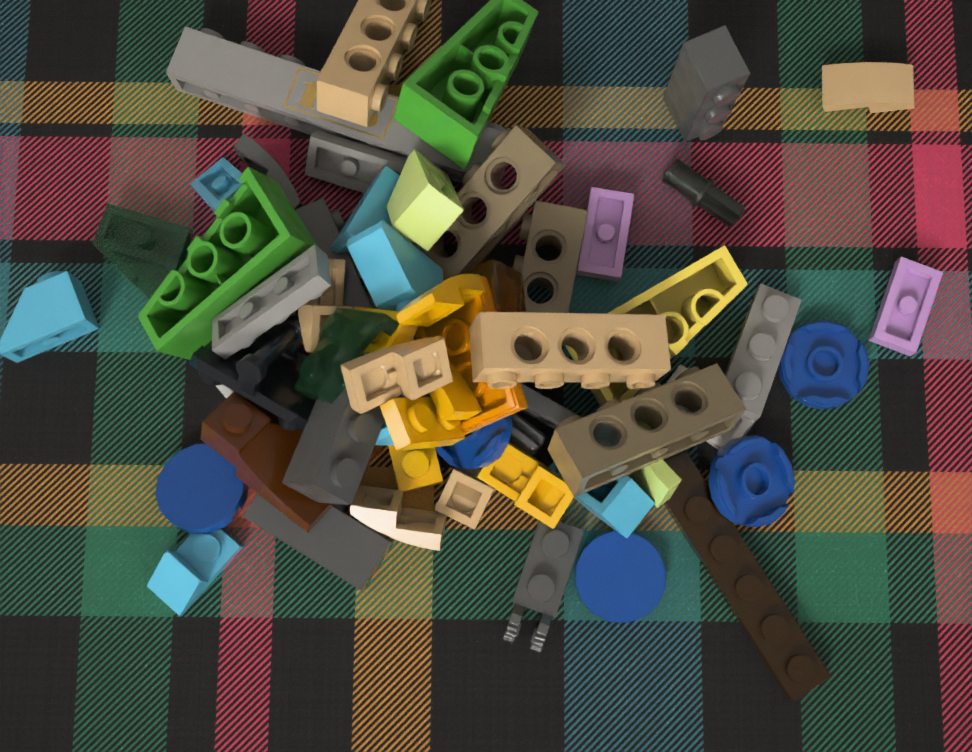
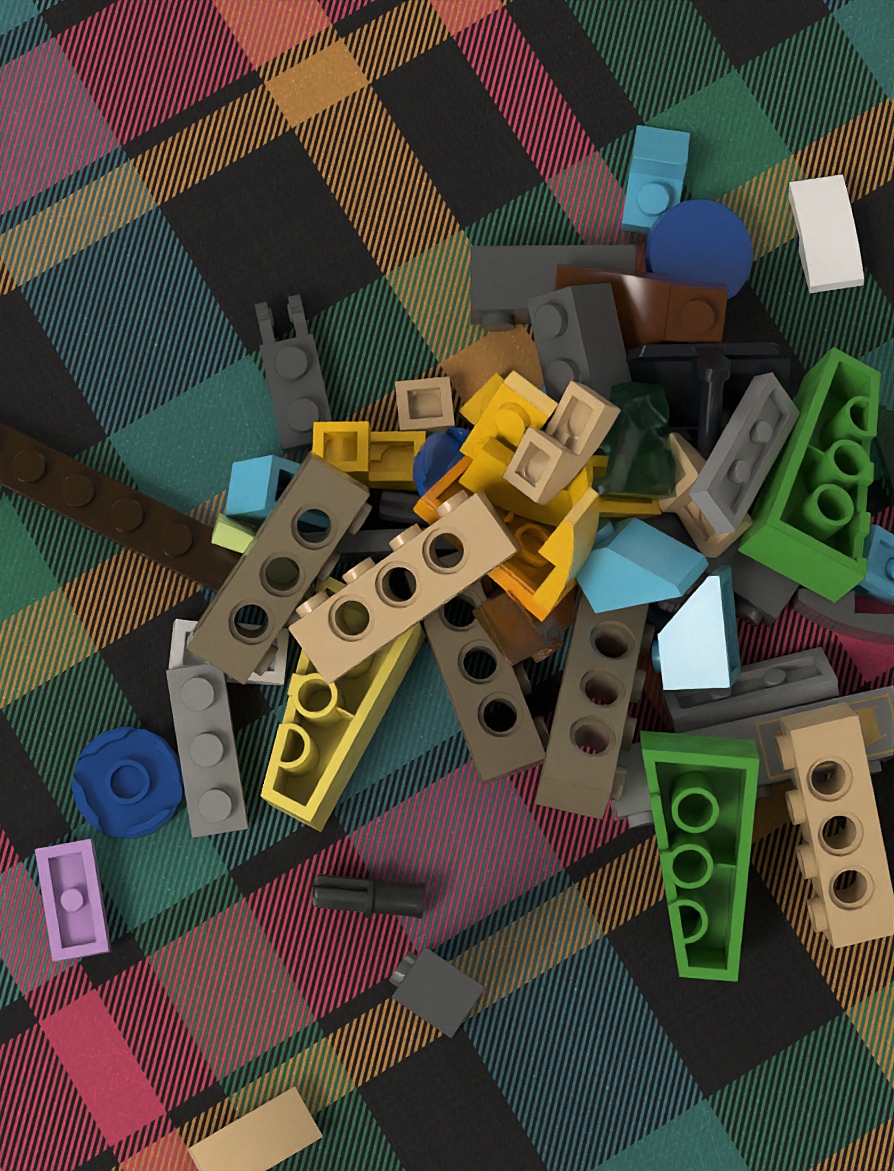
camera: 150 degrees right, 0 degrees up
(102, 448) = (826, 233): none -> white slope
(384, 513) = (490, 338): tan slope -> none
(423, 202) = (661, 664): yellowish green slope -> none
(605, 234) = (450, 779): lavender plate -> none
(620, 577) = (215, 424): blue tile -> none
(751, 481) = (136, 602): blue tile -> none

